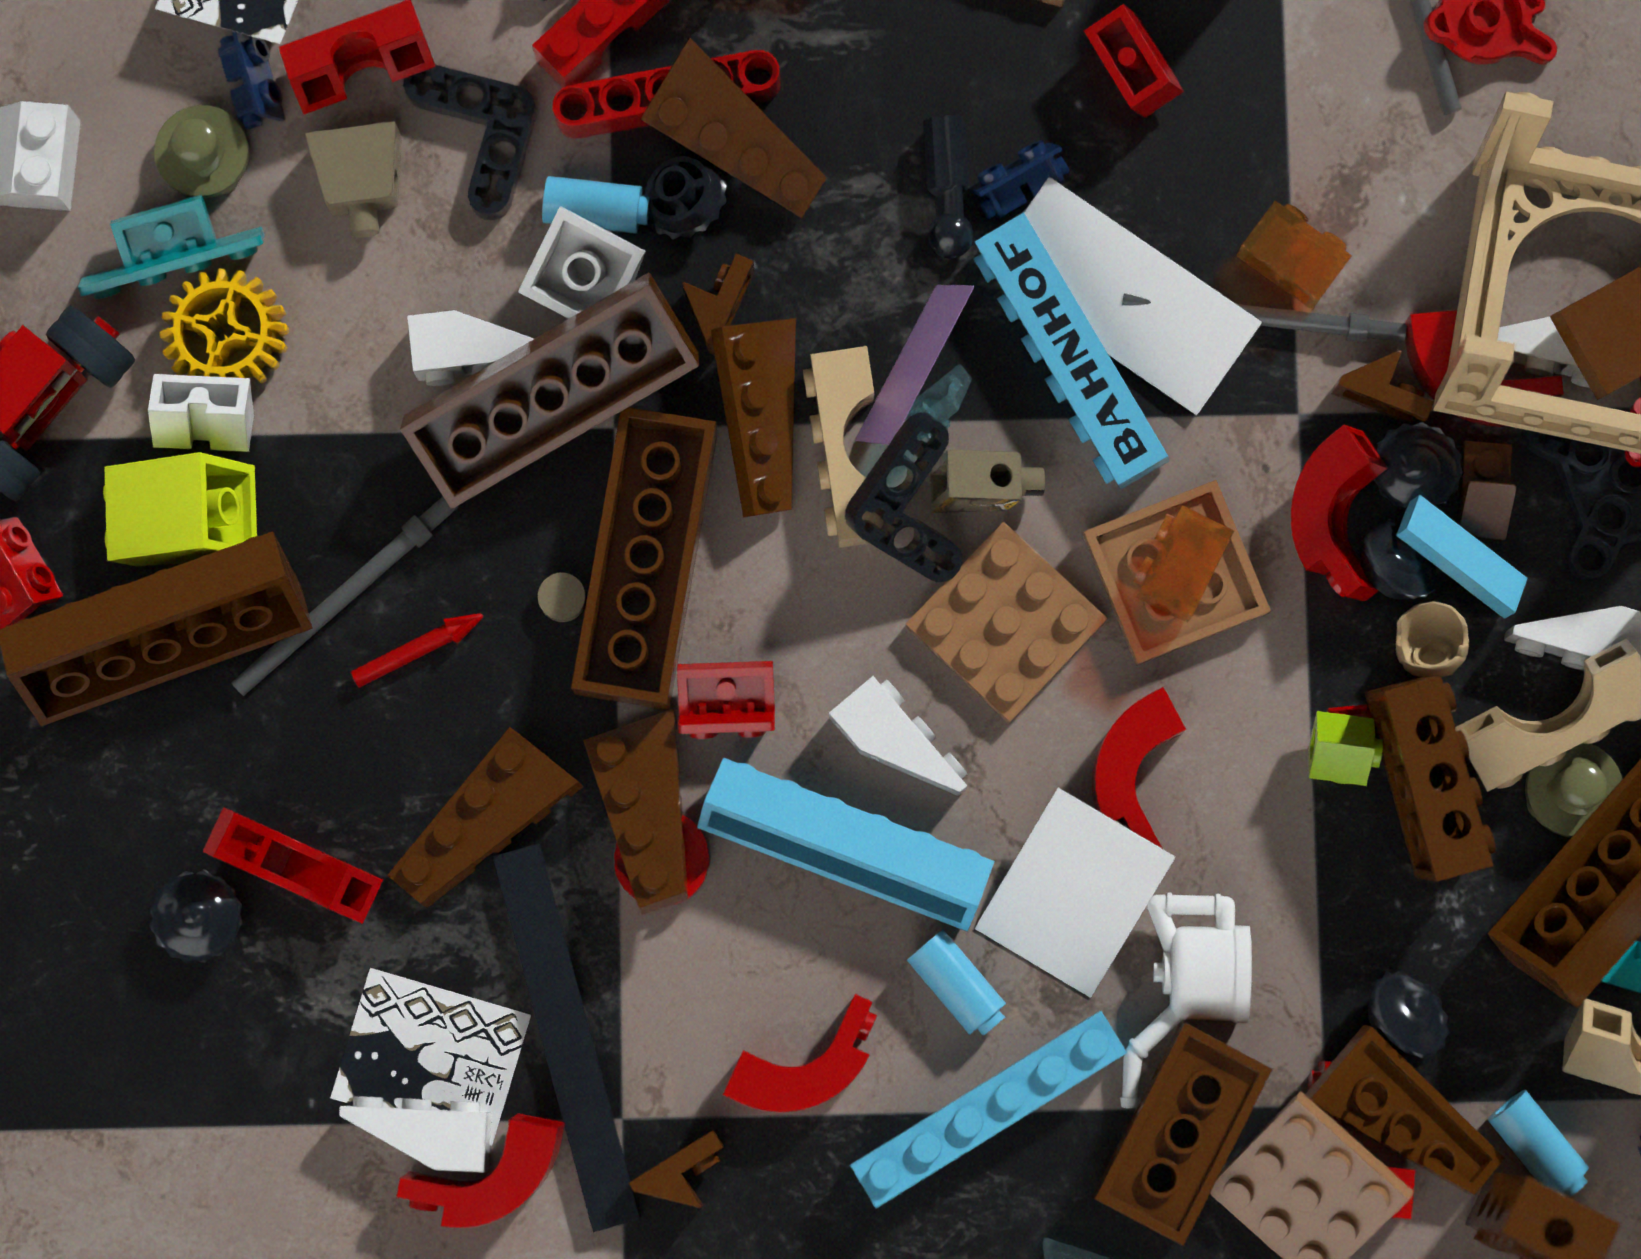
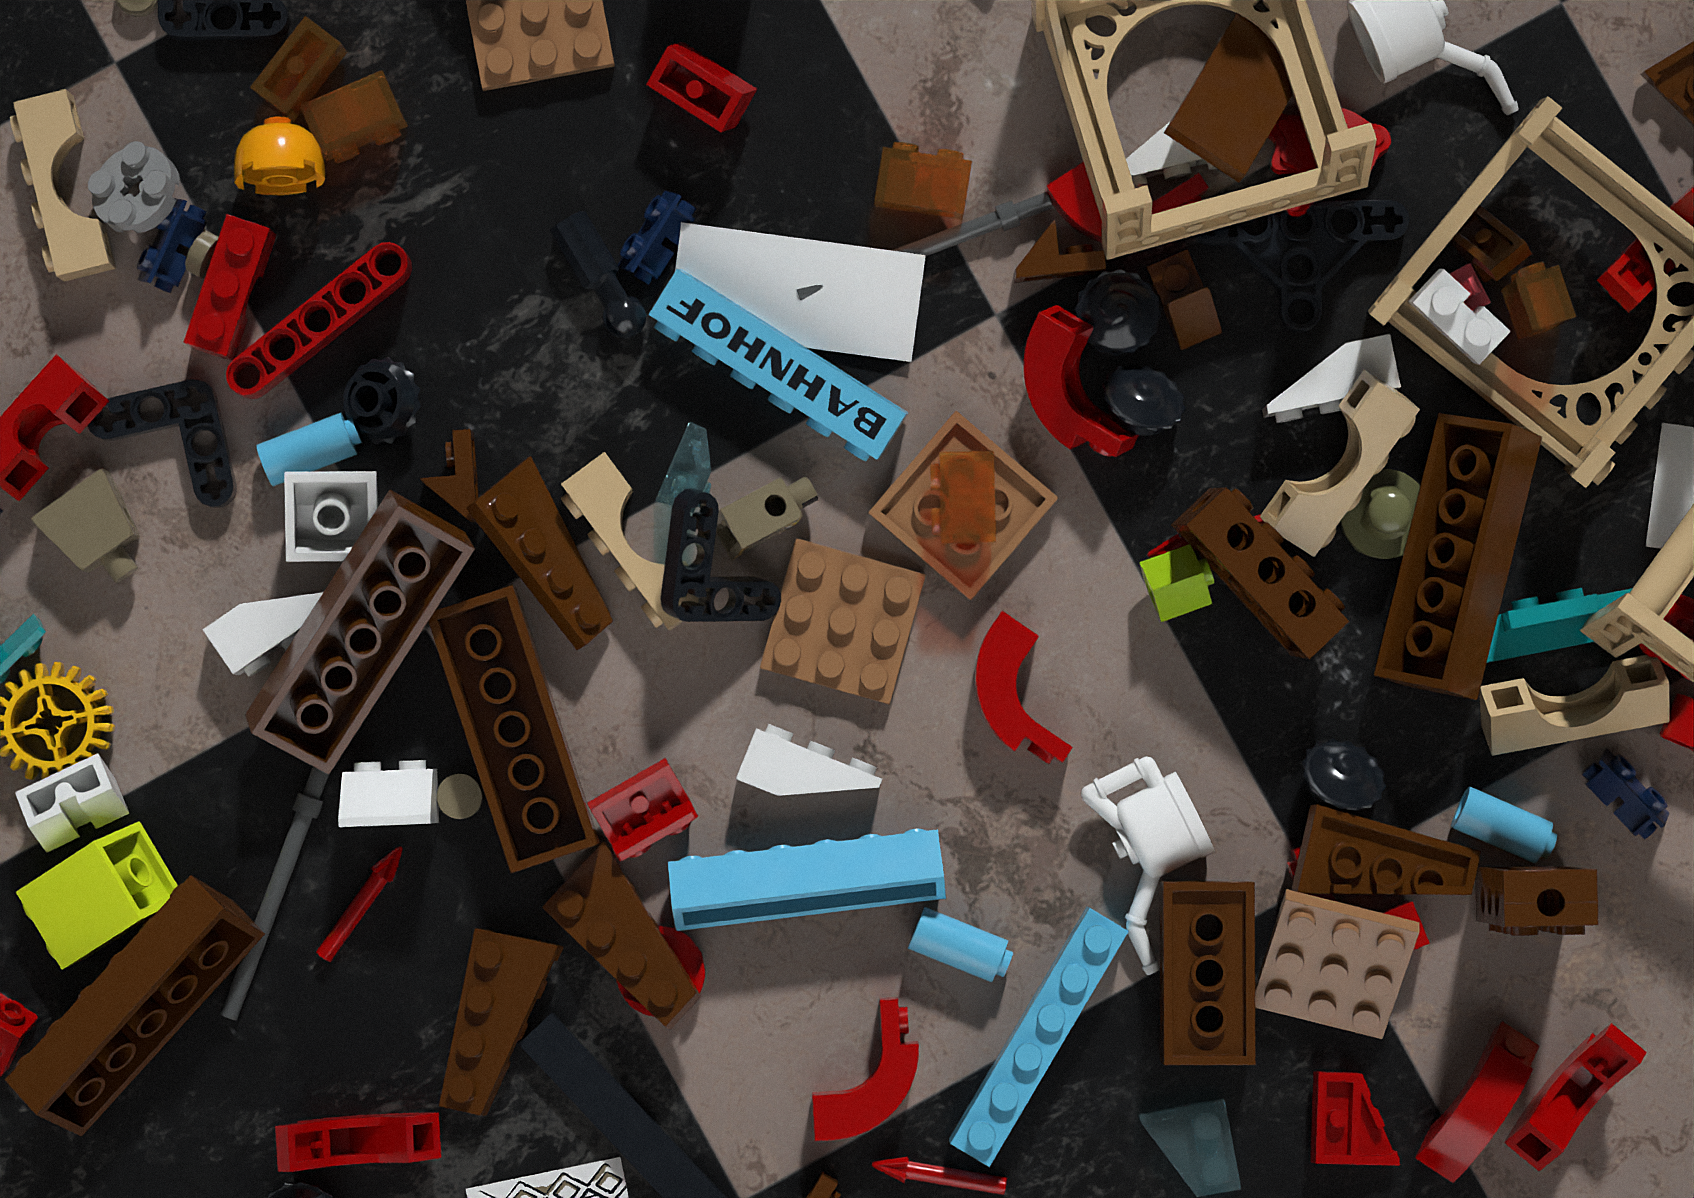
camera: 35 degrees left, 5 degrees up
(495, 561) = (388, 796): none -> white slope
(724, 126) = (379, 325): reddish brown wing -> none
(792, 1169) = (903, 1169): none -> red piece
(914, 363) = (652, 445): lavender sticker -> none
(1074, 892) = (1017, 819): white sticker -> none
(1432, 639) = (1204, 452): tan hair -> none
(1462, 556) = (1193, 369): medium azure tile -> none

